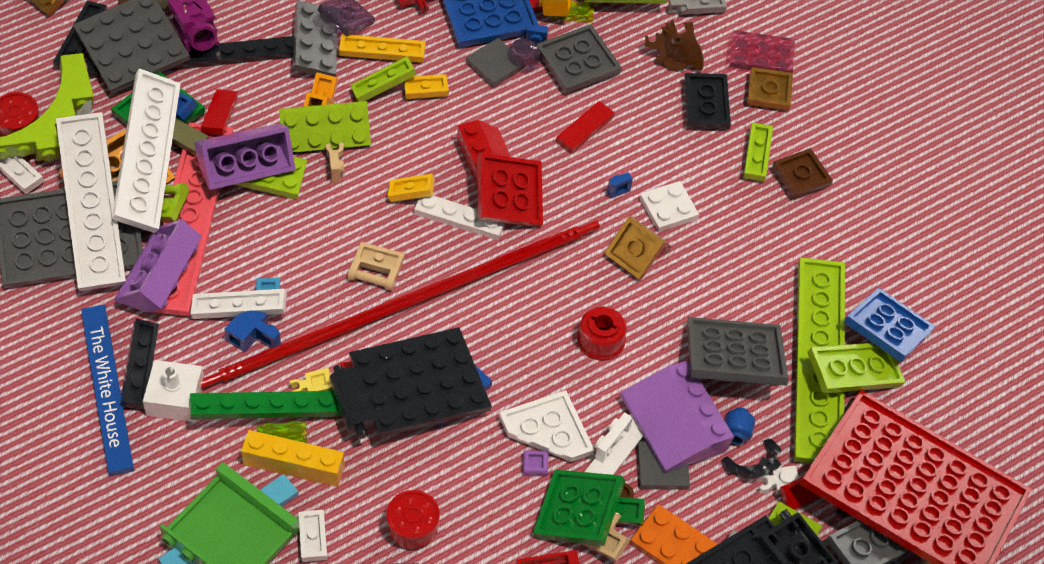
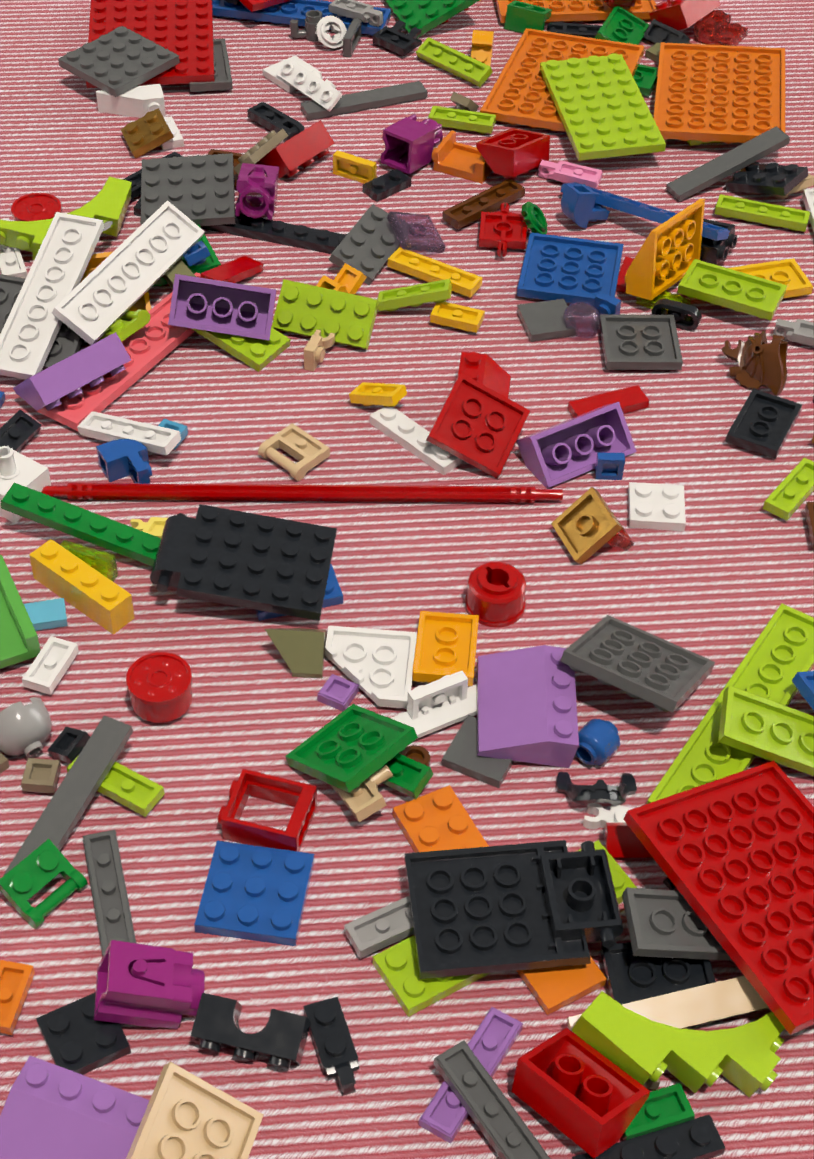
camera: 30 degrees right, 10 degrees down
(491, 438) = (301, 650): none -> olive slope
(585, 175) = (573, 445): none -> medium lavender slope
(592, 393) = (445, 646): none -> light orange plate
(600, 21) = (681, 313): none -> black plate

